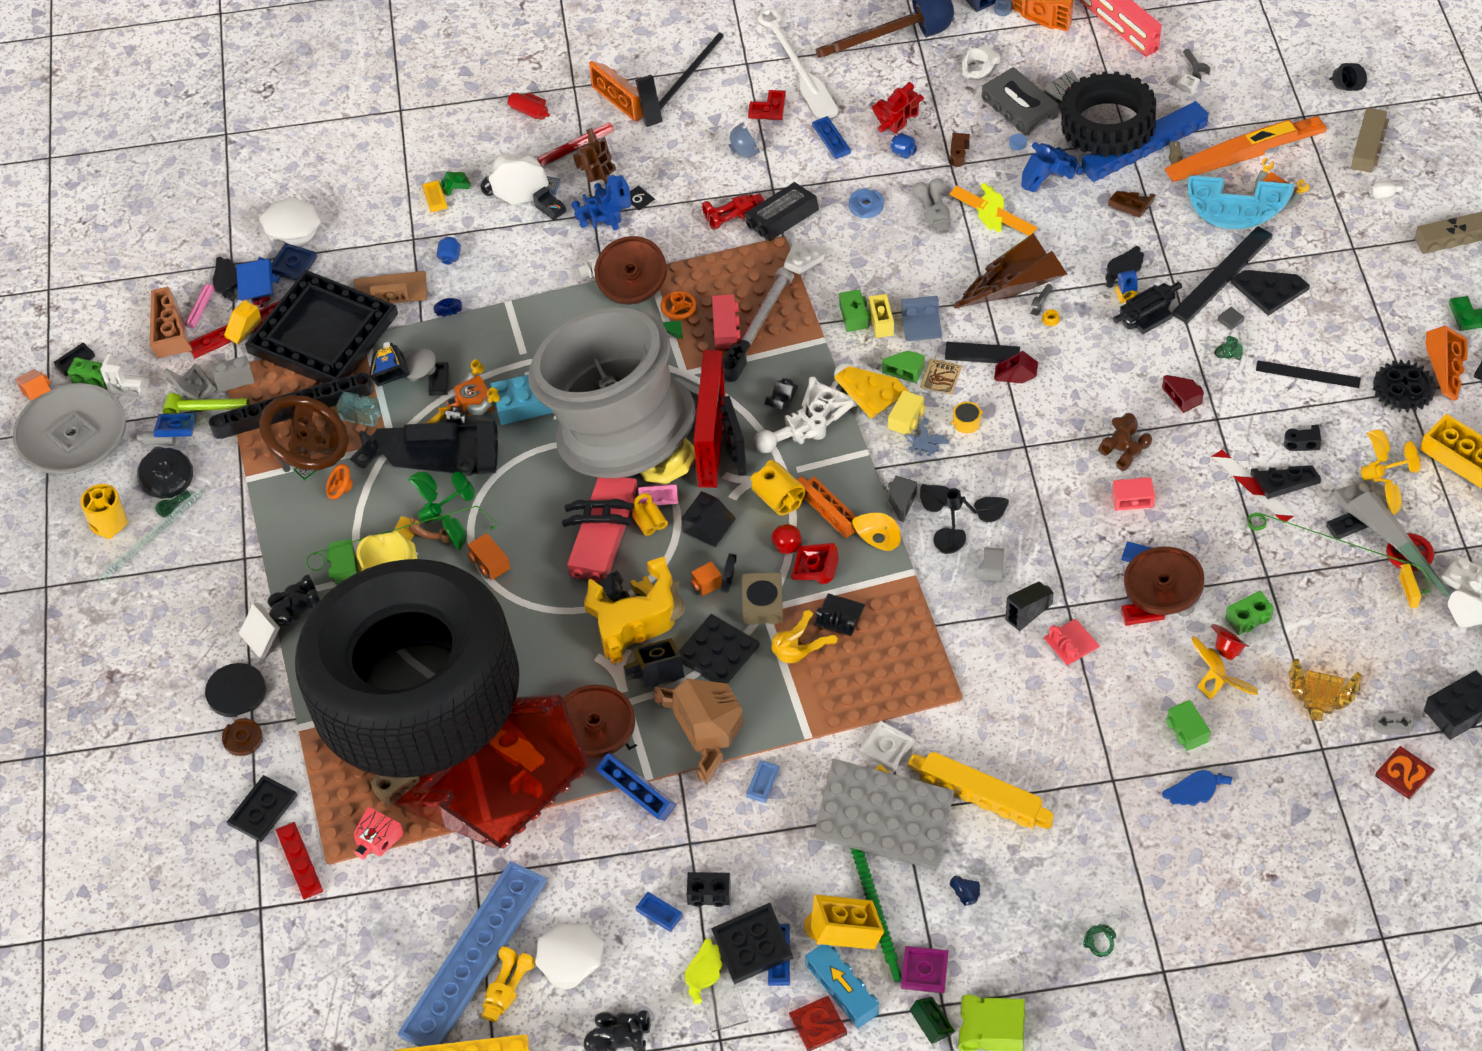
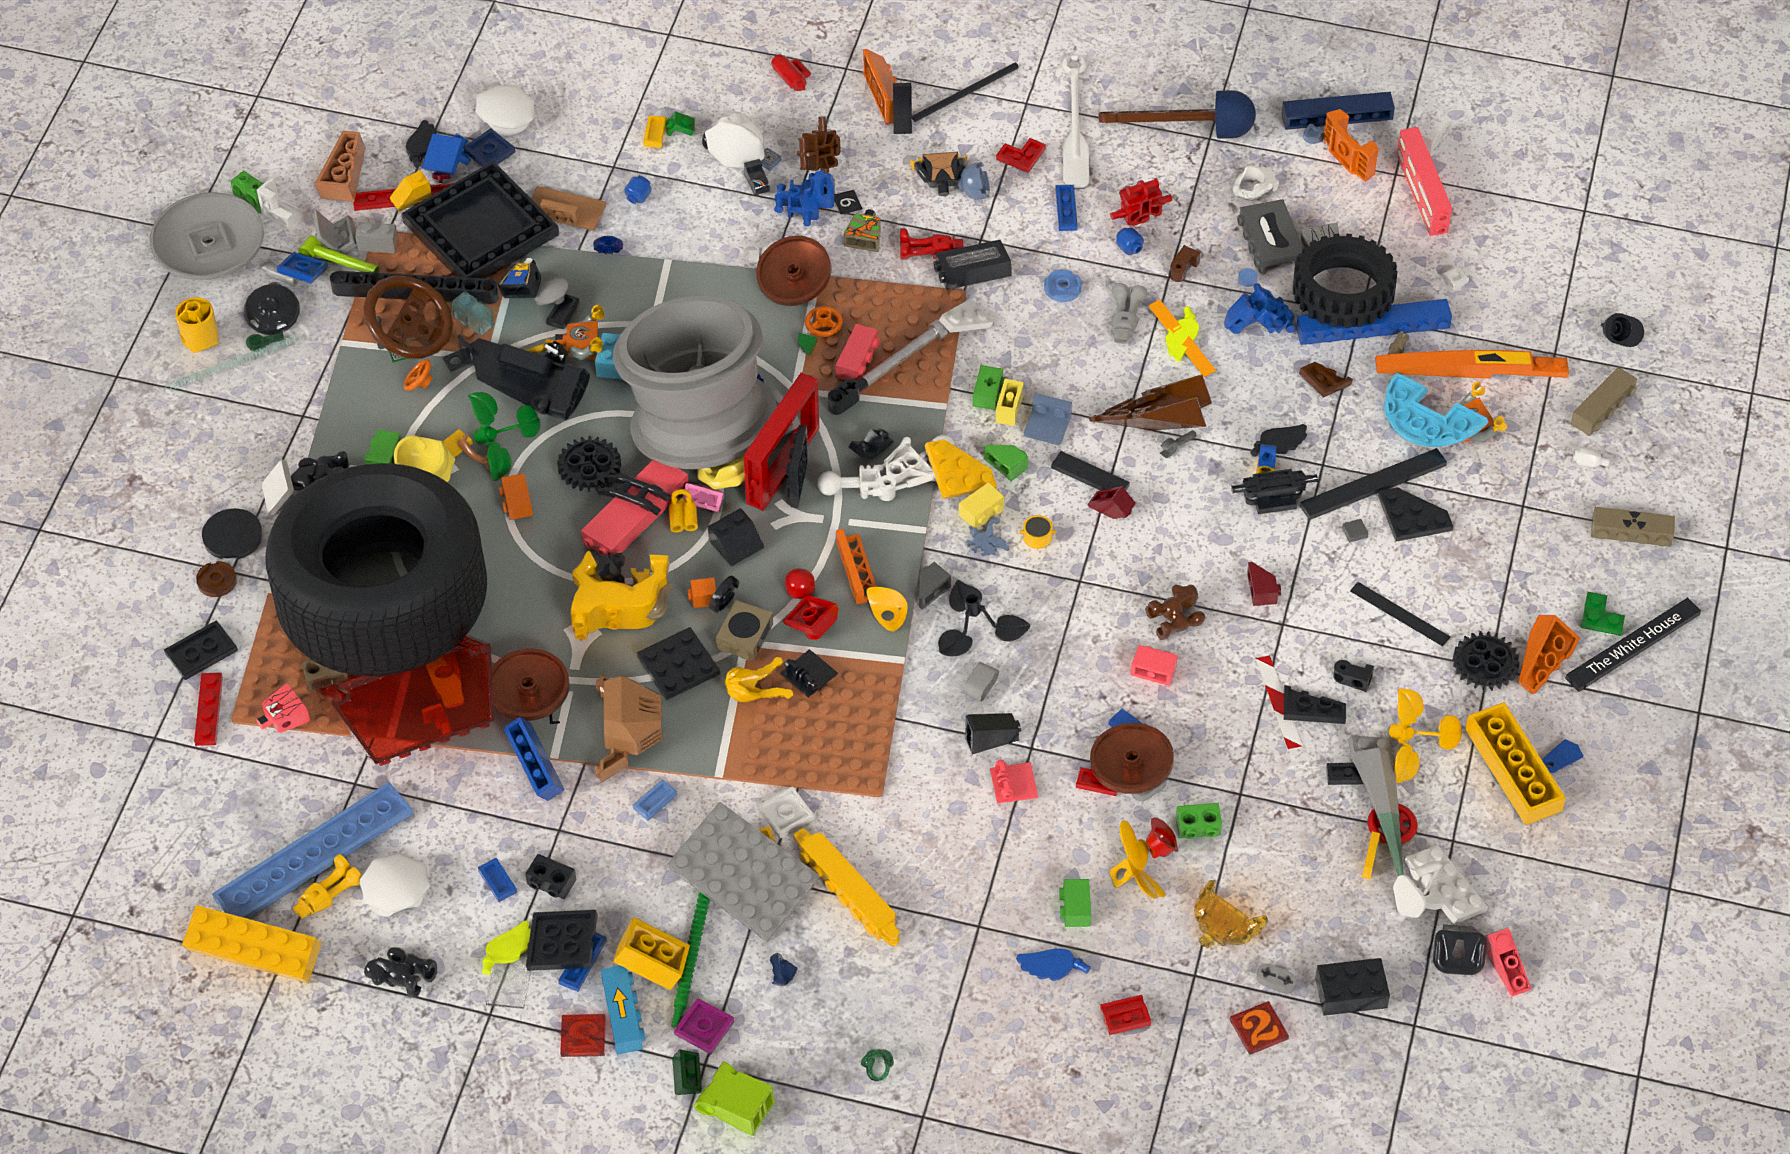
camera: 20 degrees right, 0 degrees up
(33, 384) = (195, 182): orange brick -> none
(81, 351) = (254, 168): black tile -> none
(199, 305) = (383, 161): bright pink axle -> none
(492, 527) = (364, 434): bright green piece -> none
(538, 503) = (588, 463): none -> black gear
(573, 145) = (798, 129): red axle -> none
(655, 663) = (610, 653): black hinge -> none
(670, 217) = (863, 231): none -> torso
(707, 142) = (940, 170): none -> black torso
(778, 488) = (814, 532): yellow cylinder -> none
(941, 376) = (1038, 483): sticker -> none
(1051, 317) = (1176, 464): yellow plate -> none
(1197, 67) = (1475, 264): dark grey piece -> none
(1231, 348) = (1335, 561): clear green piece -> none
(1263, 526) = (1267, 743): bright green piece -> none
(1287, 807) = (1125, 1014): none -> red plate

